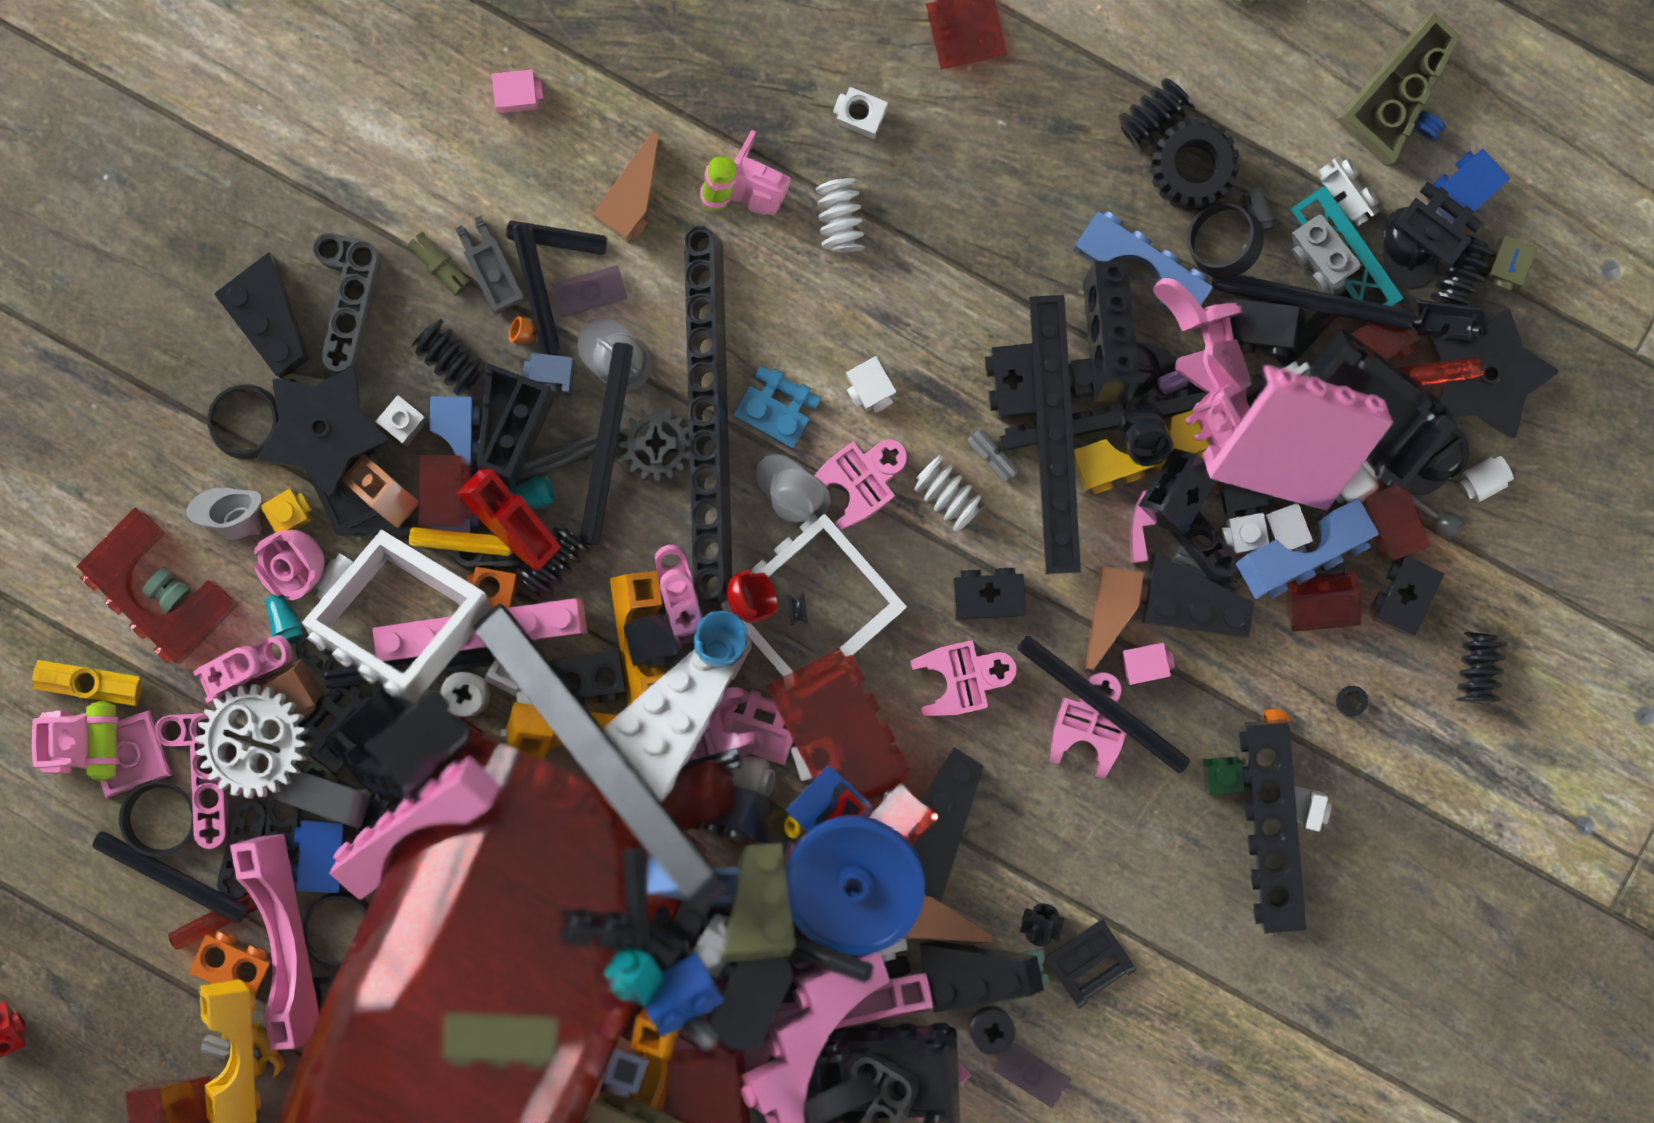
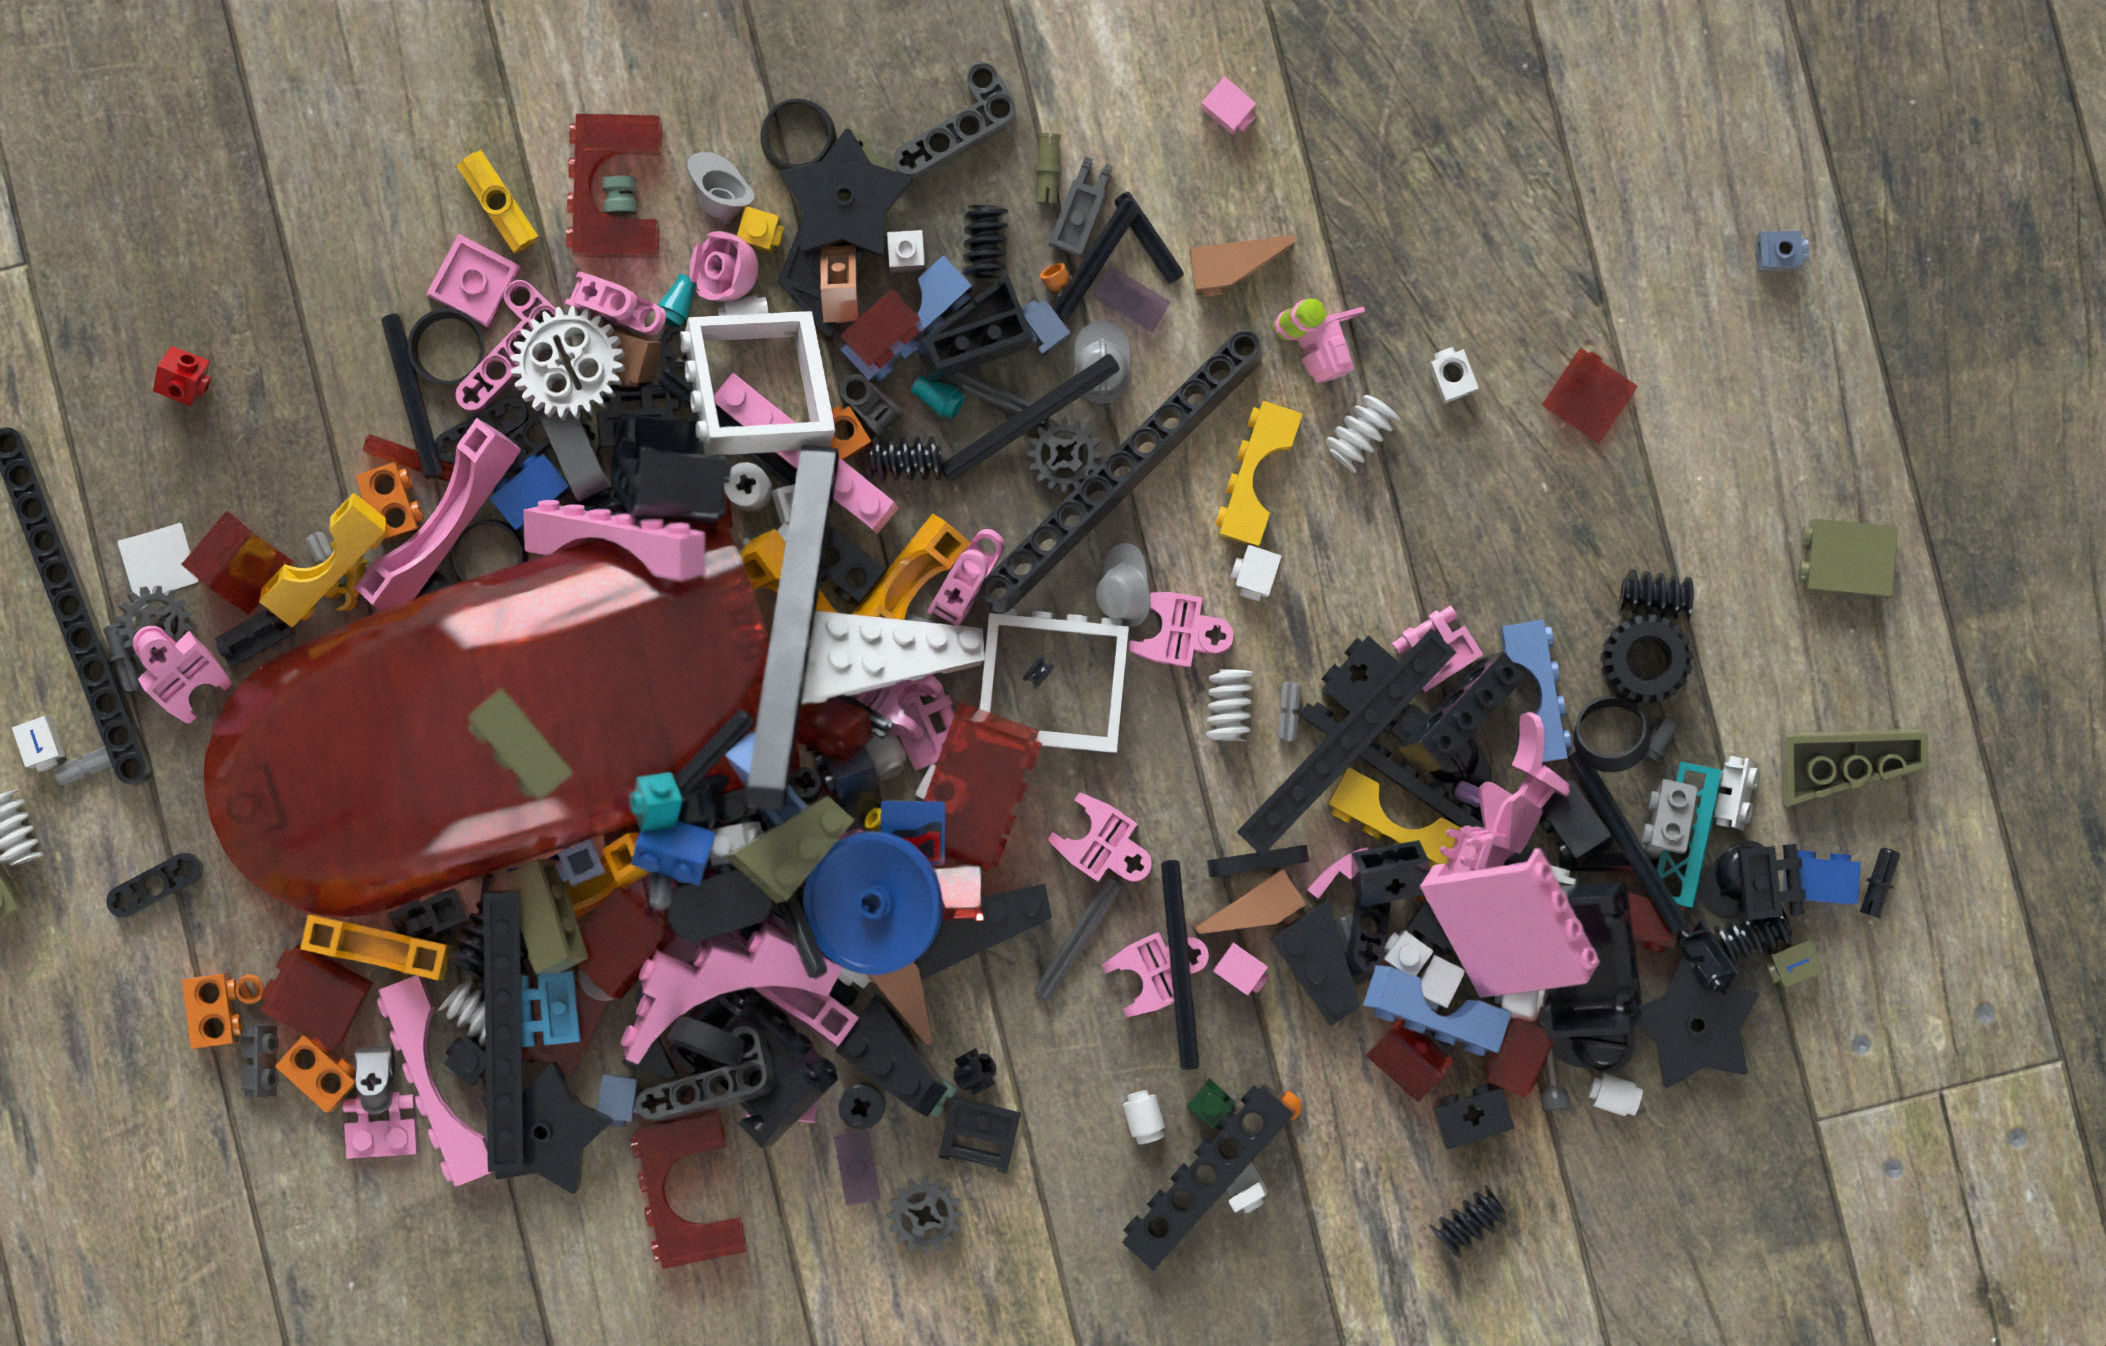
camera: 50 degrees right, 0 degrees up
(77, 741) = (450, 237): bright pink piece -> none
(264, 314) = (889, 76): black wedge -> none
(457, 541) = (857, 377): yellow axle -> none
(509, 518) = (907, 397): red slope -> none
(612, 928) = (675, 752): black hinge -> none
(650, 640) = (914, 586): black brick -> none
(718, 849) = (808, 780): none -> black hinge
(720, 639) = (963, 636): dark azure hair -> none
(752, 596) = (1016, 630): red hair -> none
(772, 416) = (1165, 520): dark azure plate -> none
(822, 355) = (1272, 432): none -> yellow arch
(972, 606) = (1162, 800): black brick -> none
(1014, 760) = (1078, 938): none -> dark grey axle
(1055, 285) = (1460, 641): none -> bright pink plate
(1078, 581) = (1255, 861): none -> black beam
(1096, 1063) = (945, 1223): none -> dark grey gear
(1146, 434) = (1409, 809): black wheel -> none
(1188, 832) = (1144, 1117): none -> white brick
(1362, 698) = (1347, 1143): black bush -> none
(1429, 126) = (1840, 807): blue bush -> none
(1445, 370) = (1666, 988): clear red axle -> none
(1508, 148) = (1880, 882): none -> black axle

